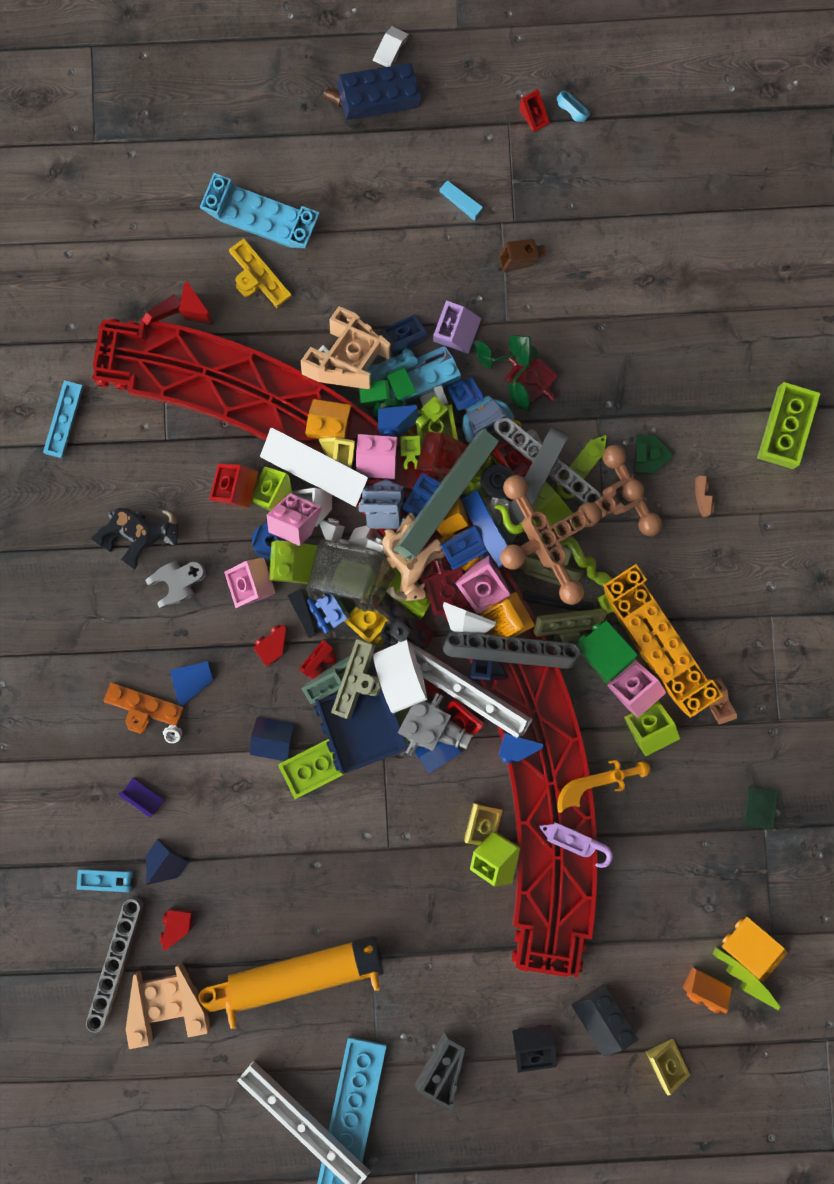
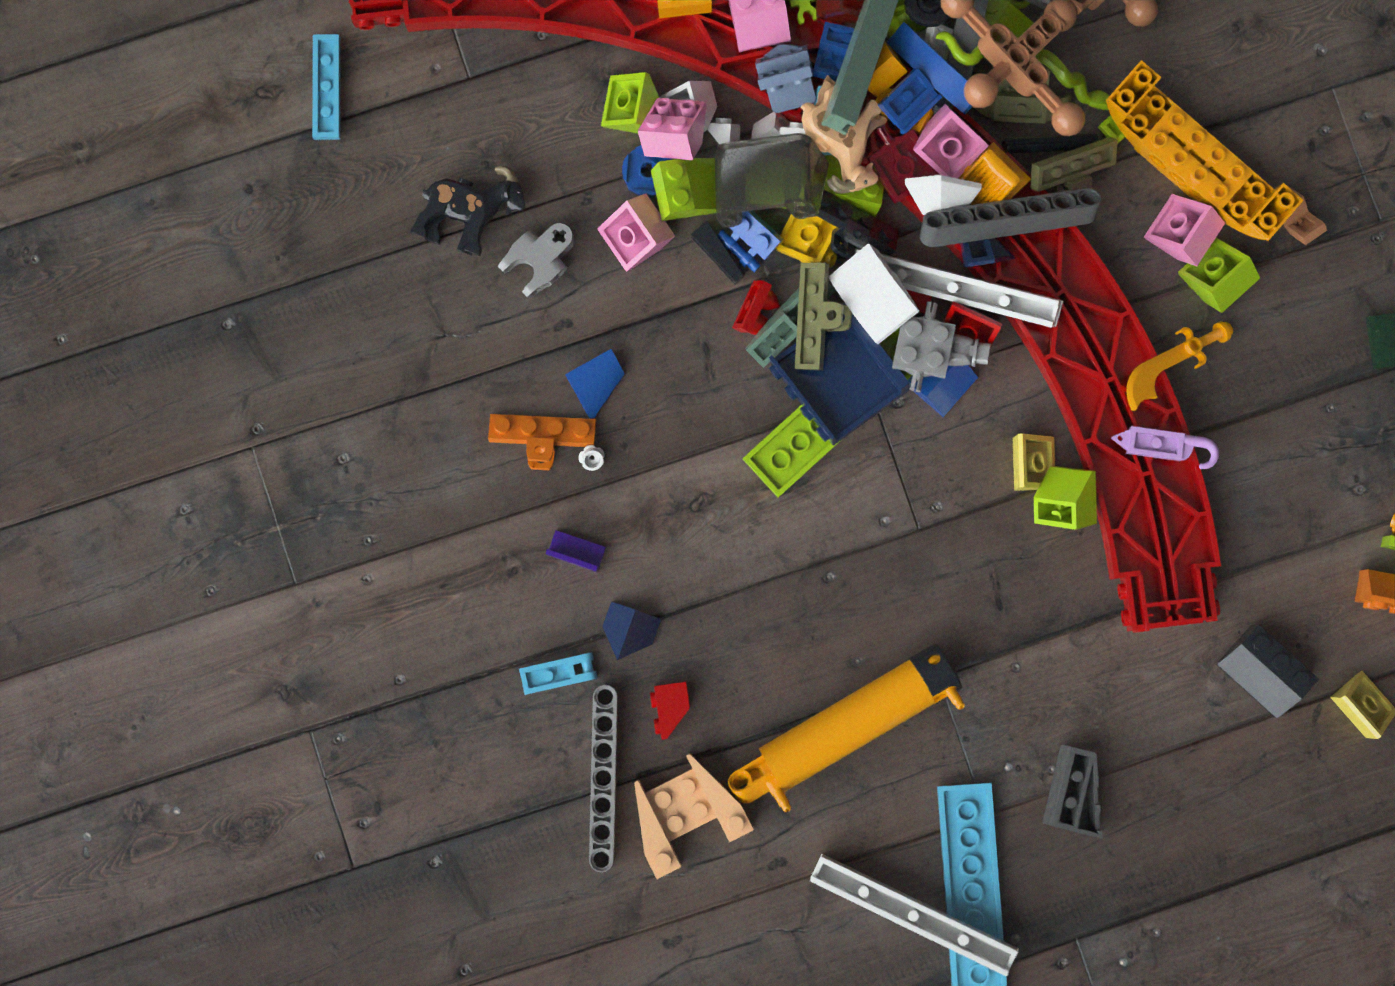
camera: 15 degrees left, 0 degrees up
(233, 485) = (577, 110): red slope -> none
(271, 739) = (724, 429): dark blue slope -> none
(273, 646) = (690, 308): red slope -> none
(313, 467) = (679, 54): white sticker -> none
(339, 450) = (708, 25): light yellow slope -> none
(516, 748) = (1051, 344): blue slope -> none
(534, 1048) = (1186, 732): black slope -> none
(606, 651) = (1133, 190): green slope -> none

